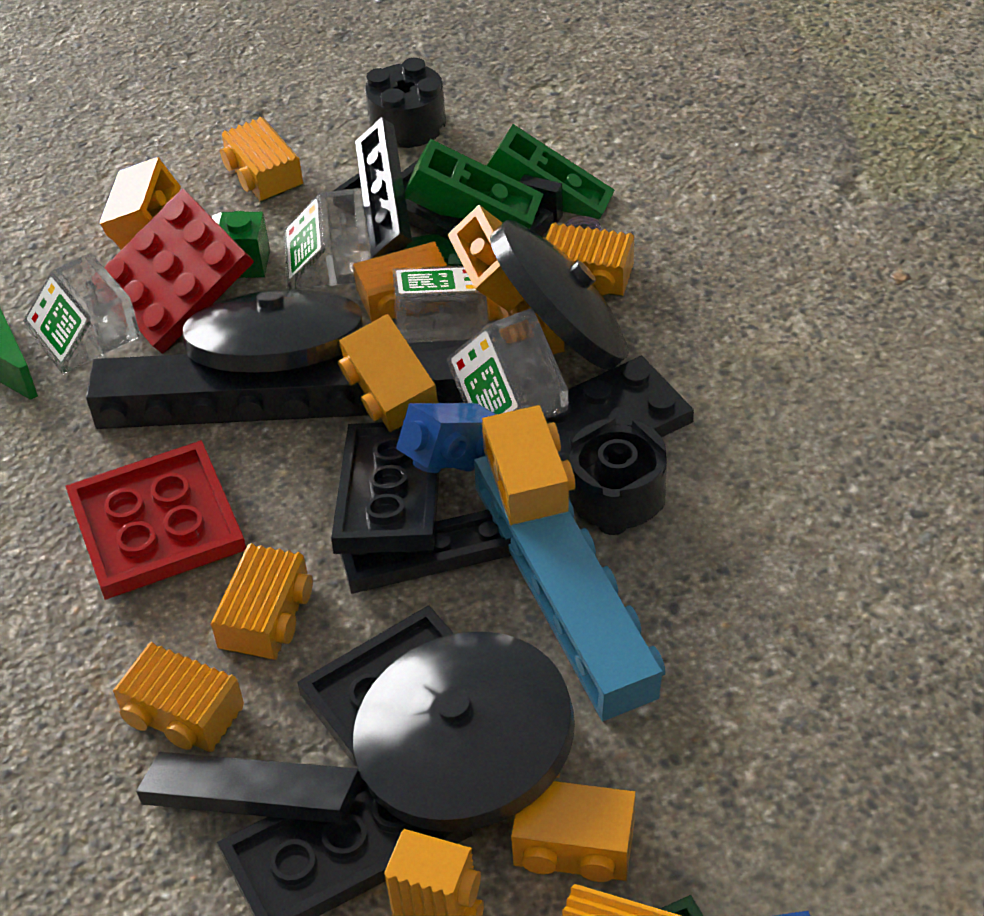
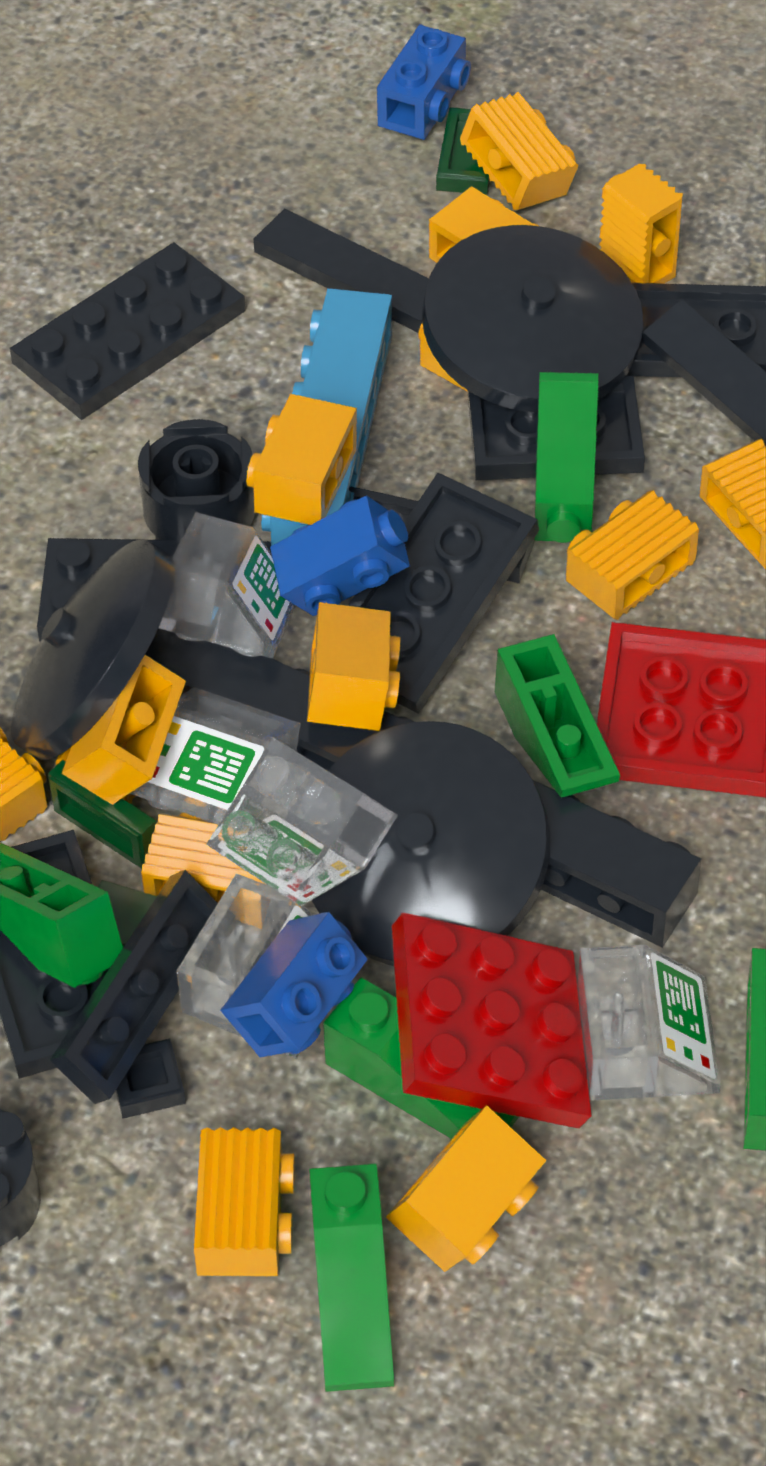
camera: 150 degrees left, 5 degrees up
(193, 164) = (351, 1277): none -> slope
(239, 436) = (552, 716): none -> green slope
(285, 202) = (295, 985): none -> blue brick
(342, 272) = (300, 826): none -> clear slope
(343, 601) = (565, 454): none -> green slope
(680, 753) = (341, 264): none -> black tile
(808, 603) = (127, 330): none -> black plate

